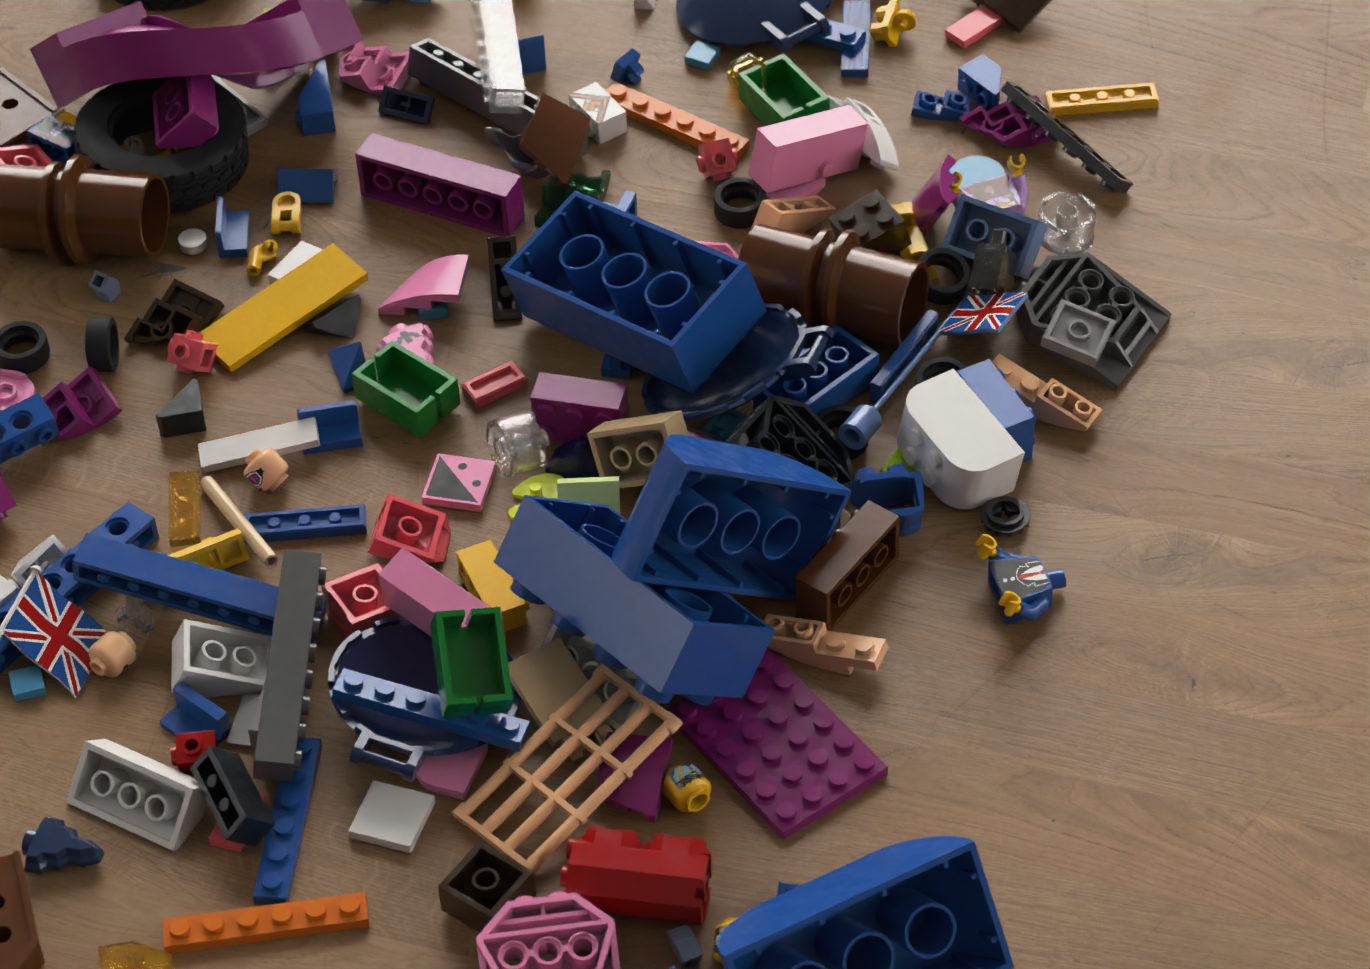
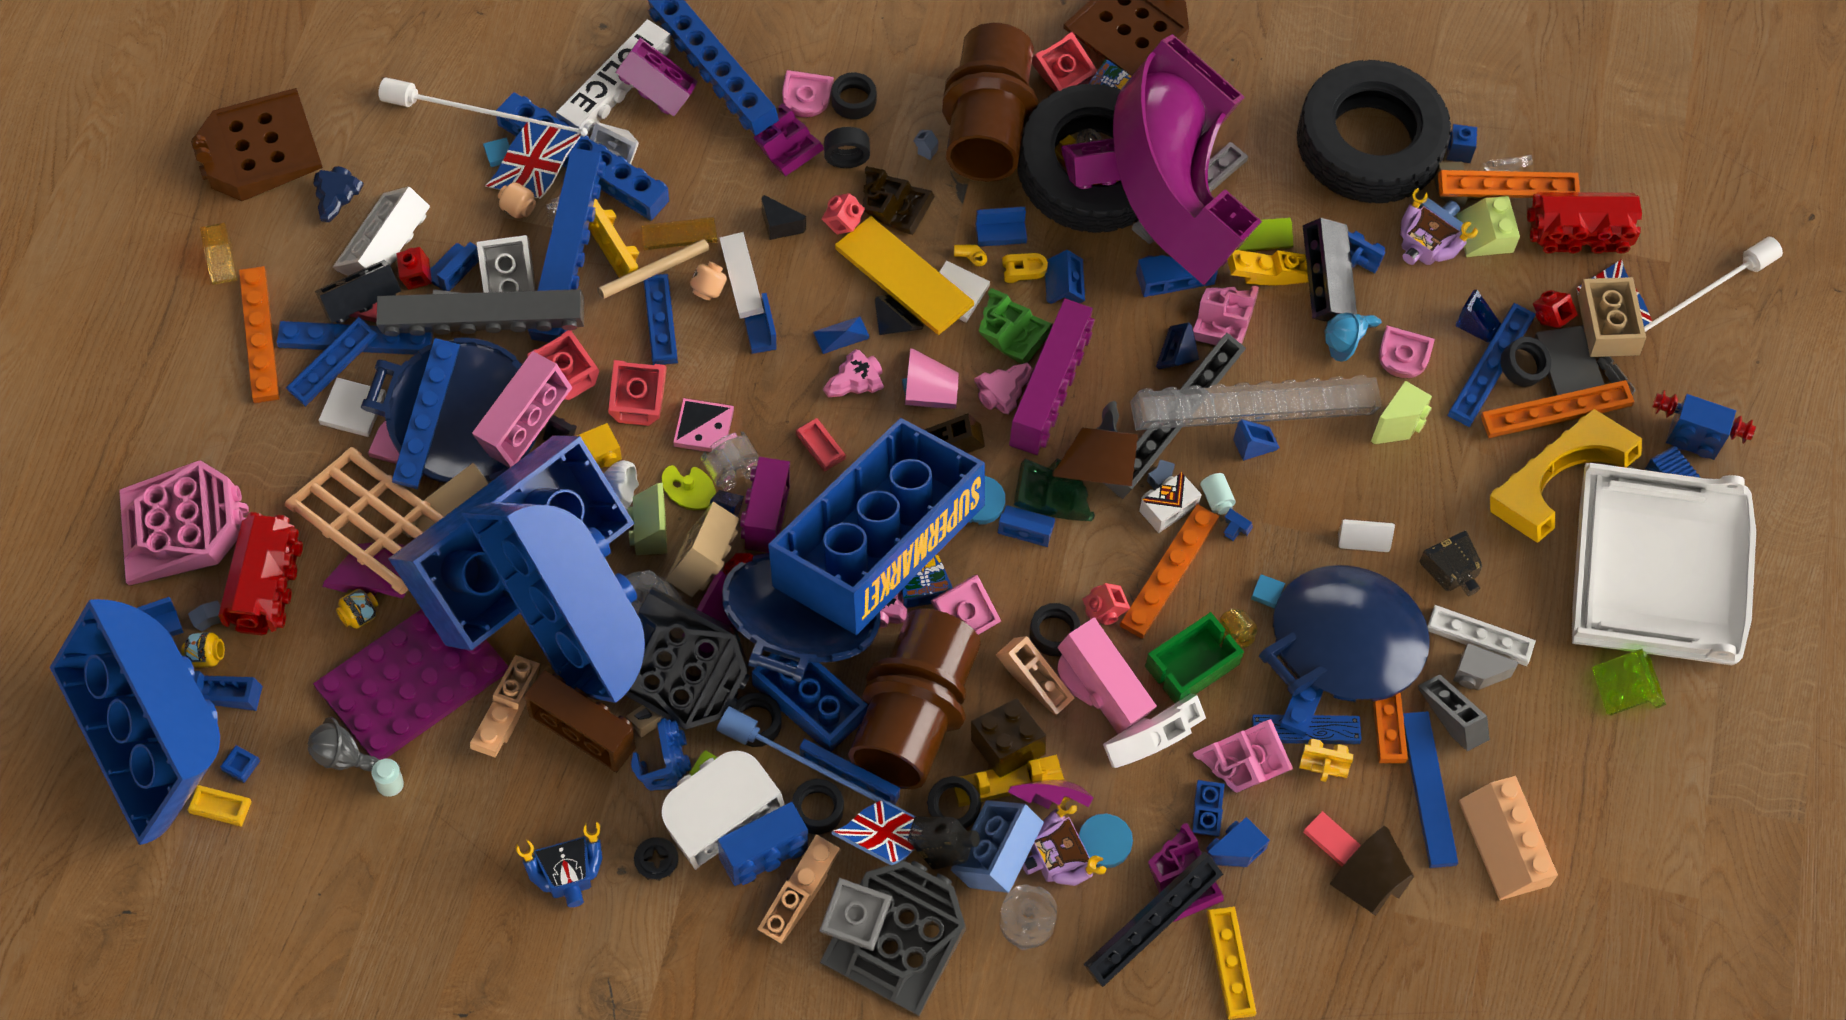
camera: 80 degrees right, 15 degrees up
(192, 241) = (988, 200): white piece -> none
(326, 833) = (332, 361): none -> blue tile
(365, 225) = (1012, 327): none -> bright green slope
(407, 390) = (798, 372): green piece -> none
(441, 234) = (1003, 387): none -> bright pink rock
(471, 662) = (438, 424): green piece -> none
(483, 885) = (263, 471): dark brown brick -> none
(590, 74) = (1218, 493): none -> light aqua brick
(870, 798) = (336, 749): none -> dark grey piece
(887, 74) = (1247, 757): none -> bright pink slope
(911, 748) = (387, 777): none -> light aqua brick

